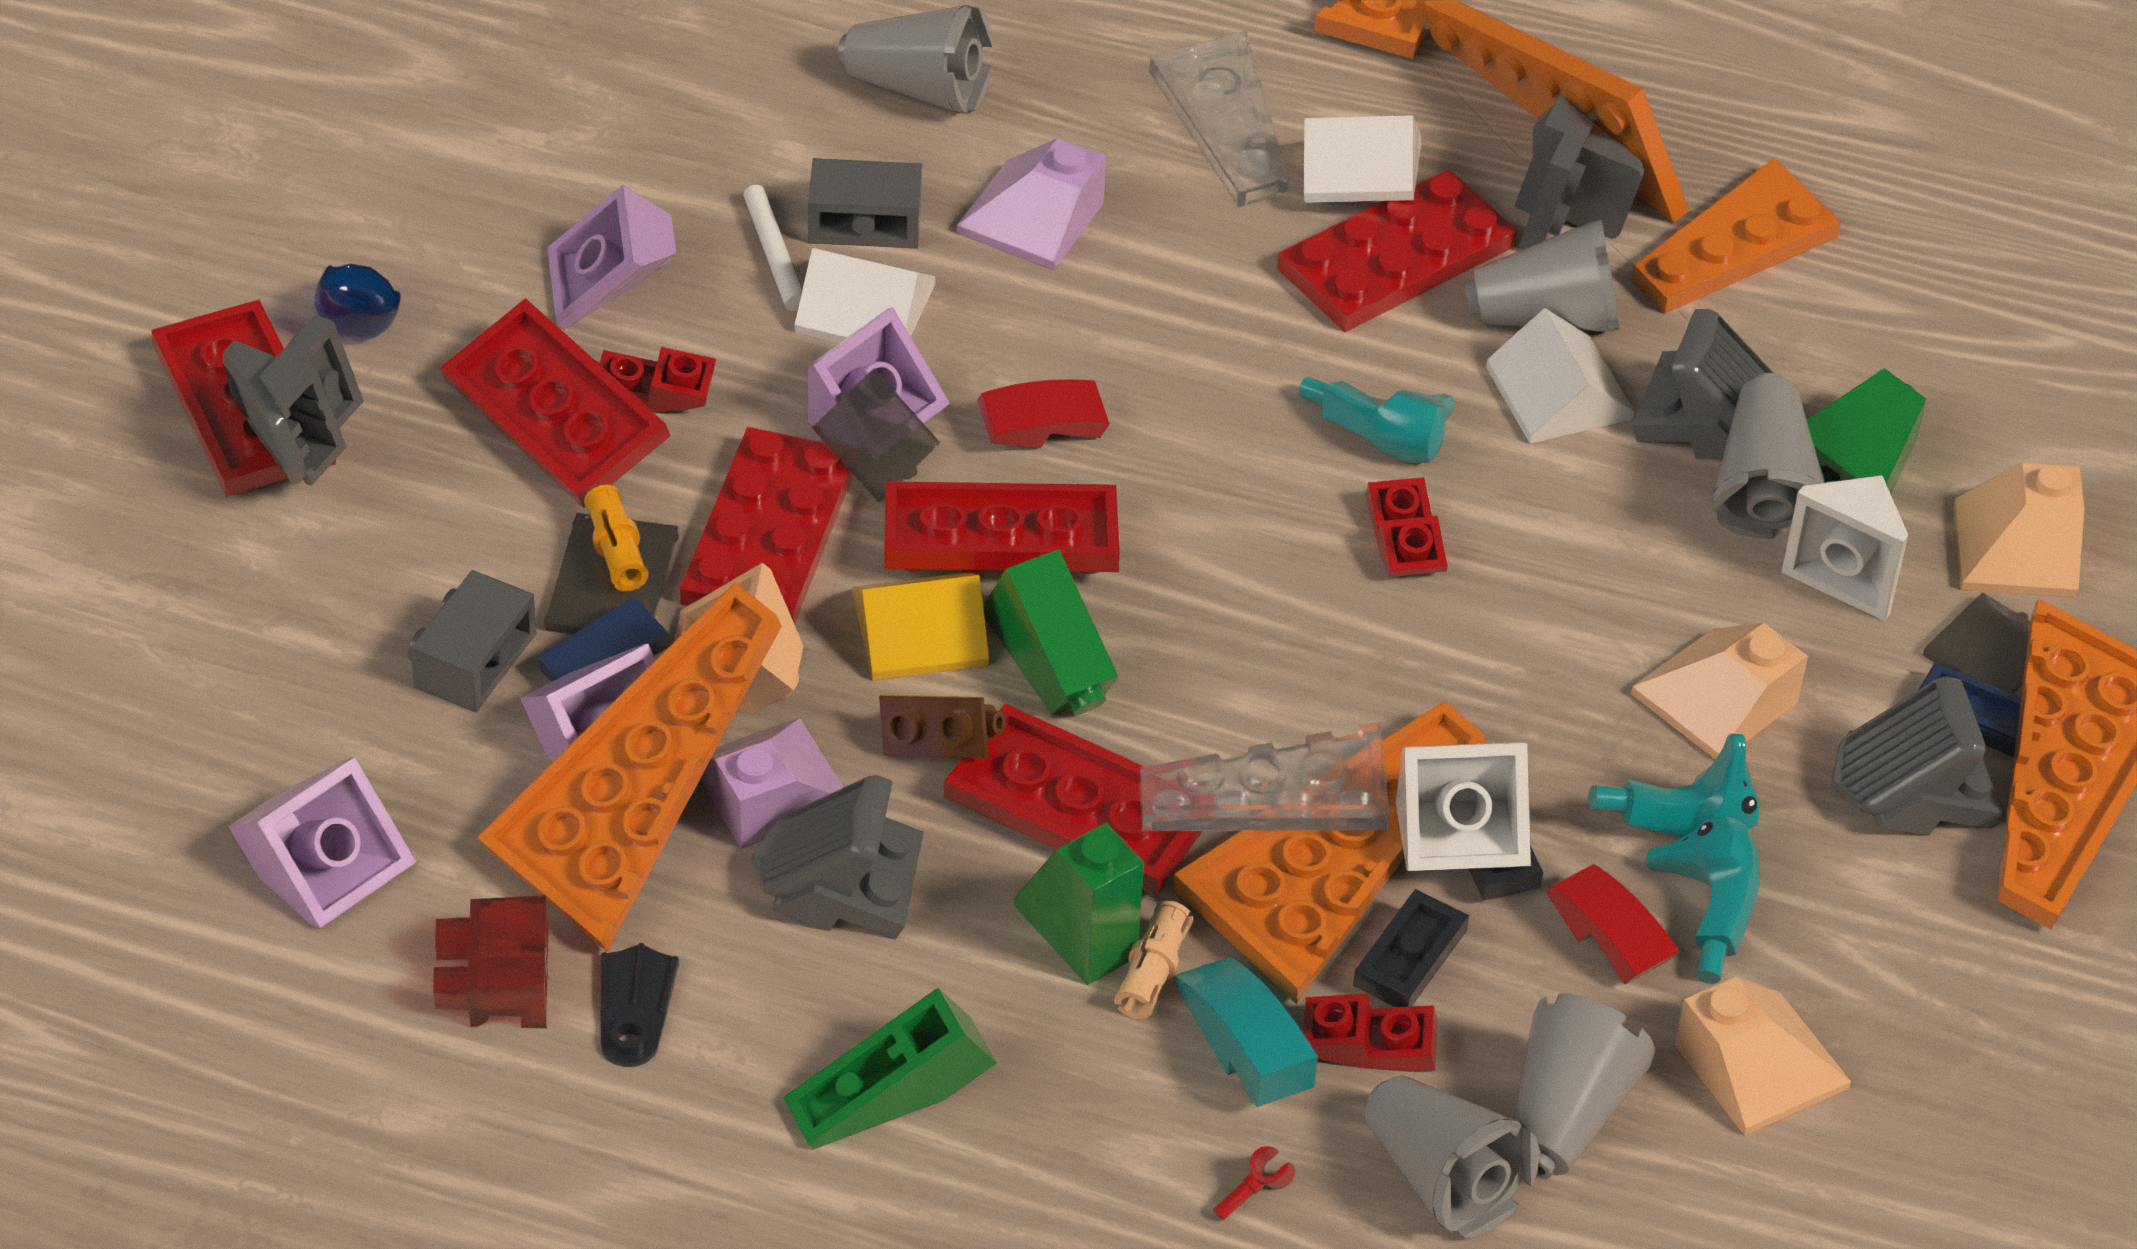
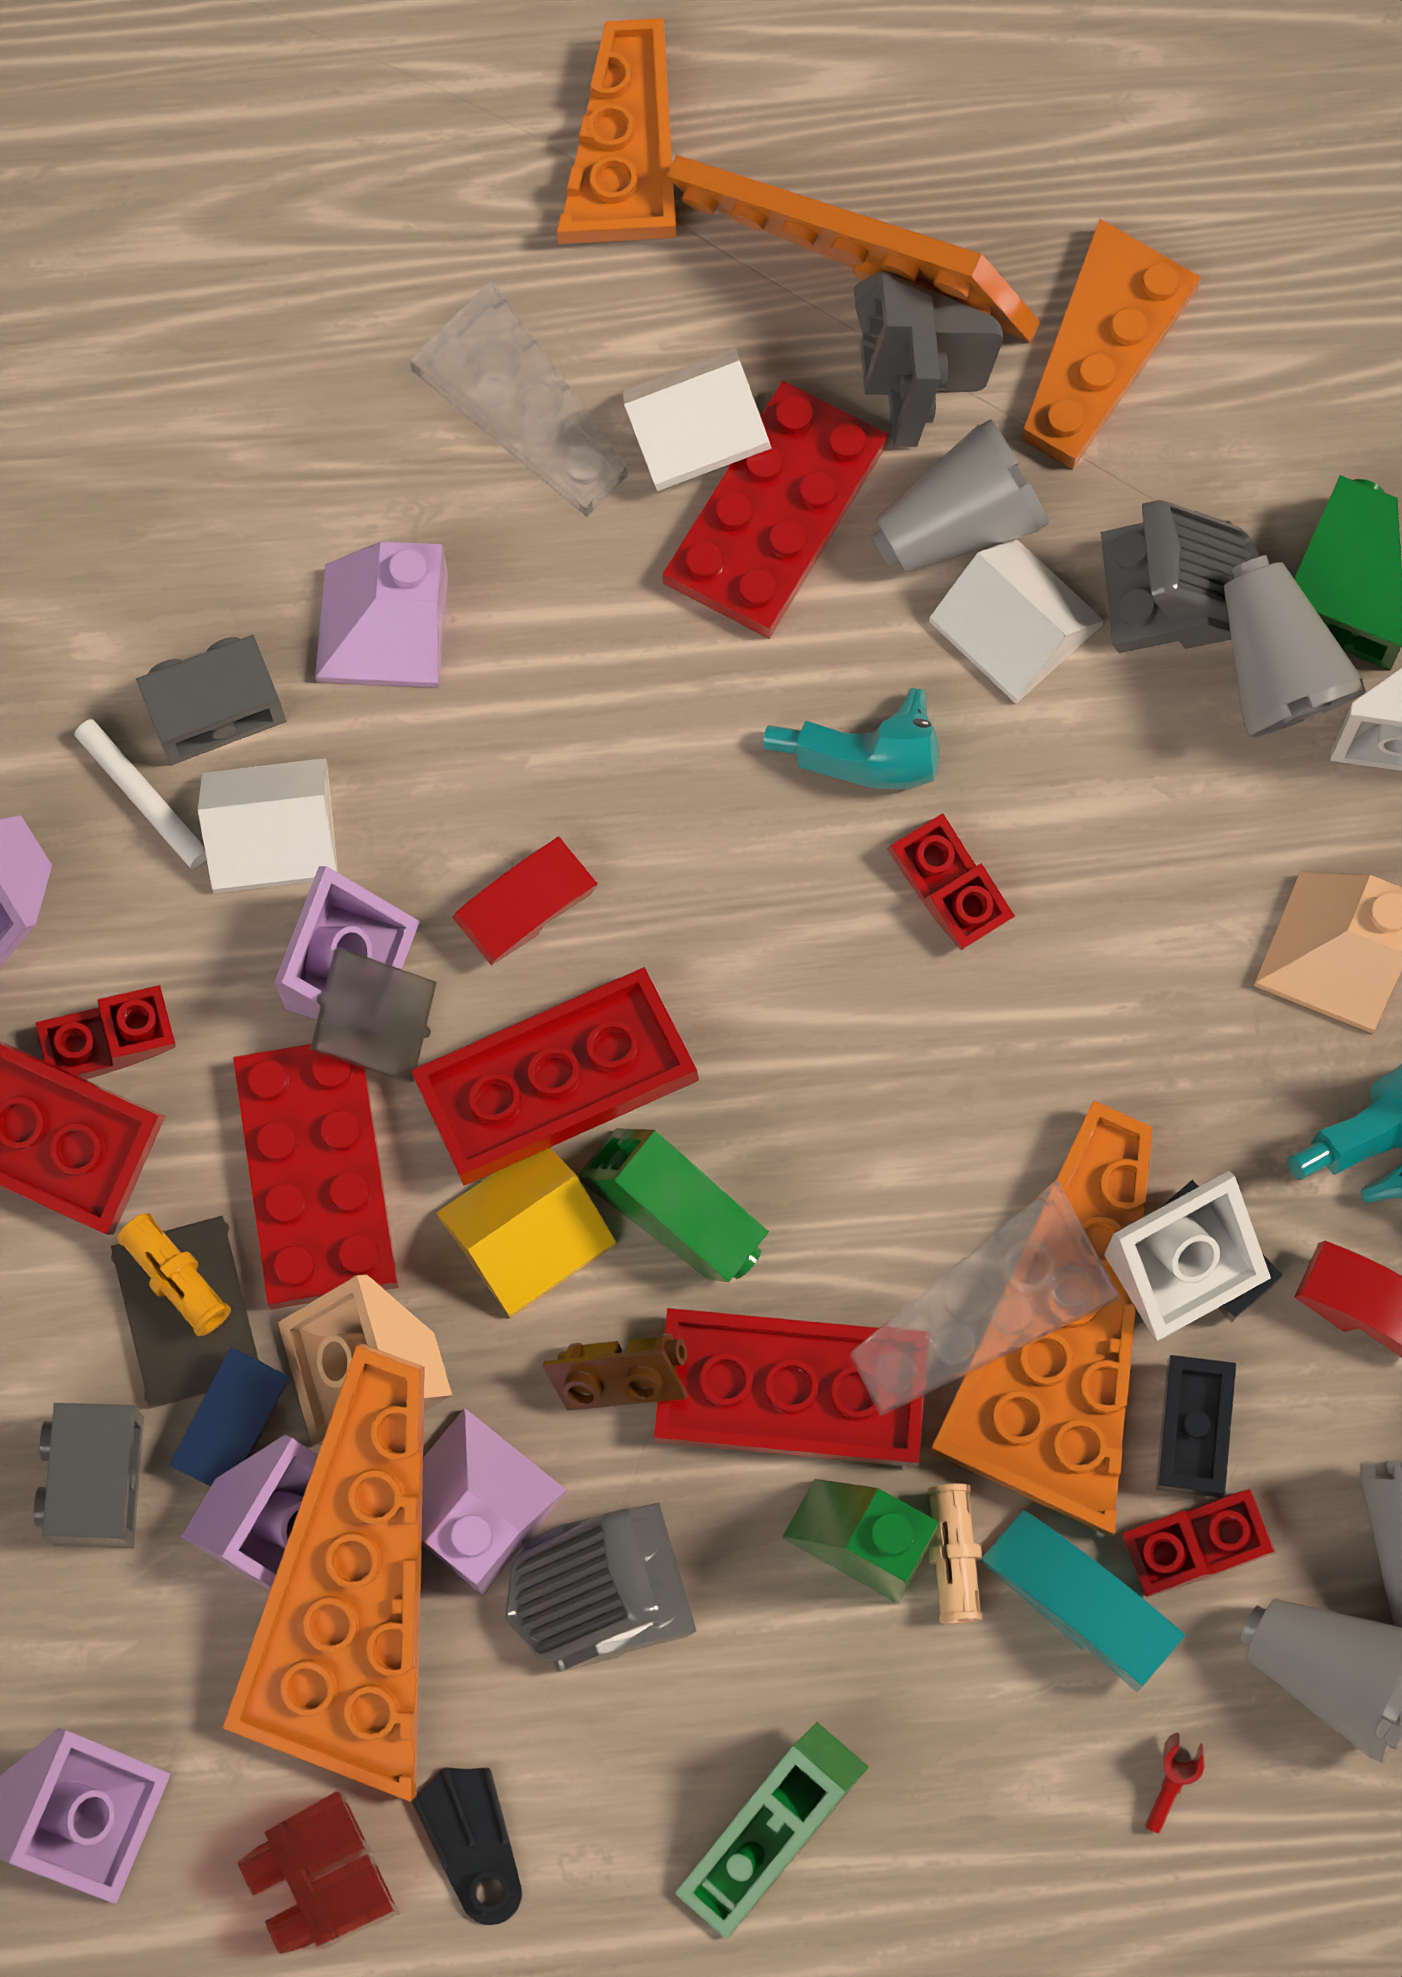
camera: 20 degrees left, 25 degrees up
(923, 55) = (178, 476): light grey cone -> none

